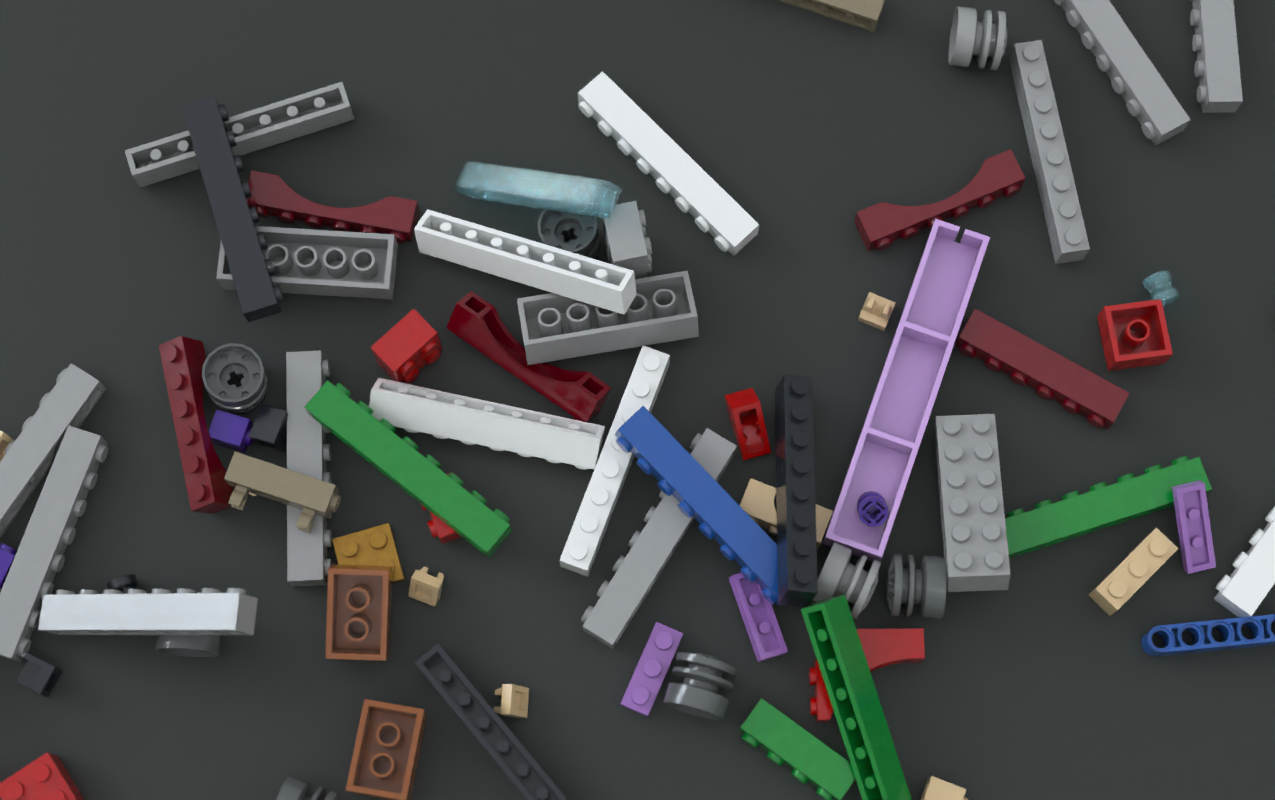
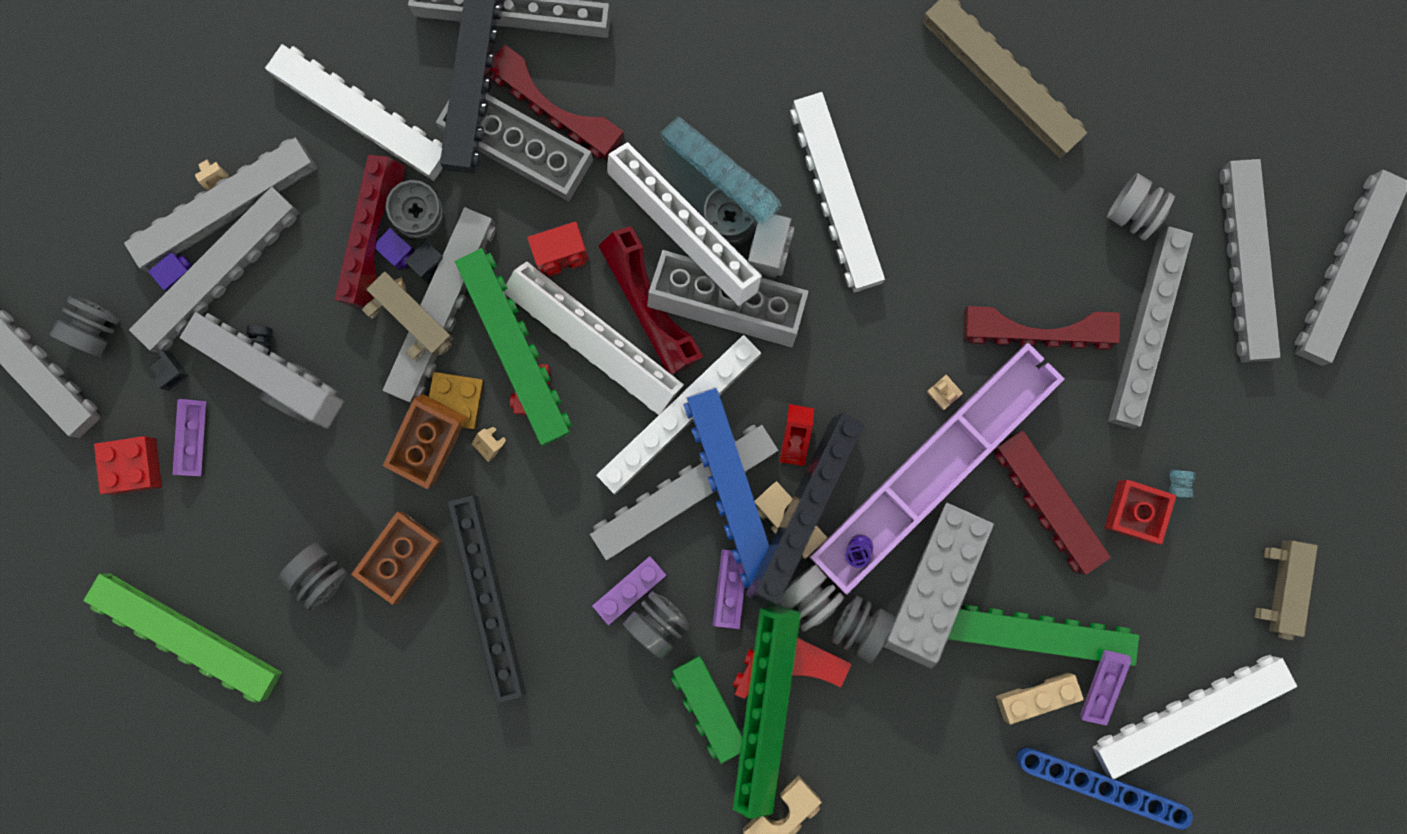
camera: 30 degrees right, 10 degrees up
(96, 734) = (189, 437): none -> medium lavender plate
(125, 309) = (356, 111): none -> white brick
(513, 700) = (511, 565): tan tile -> none

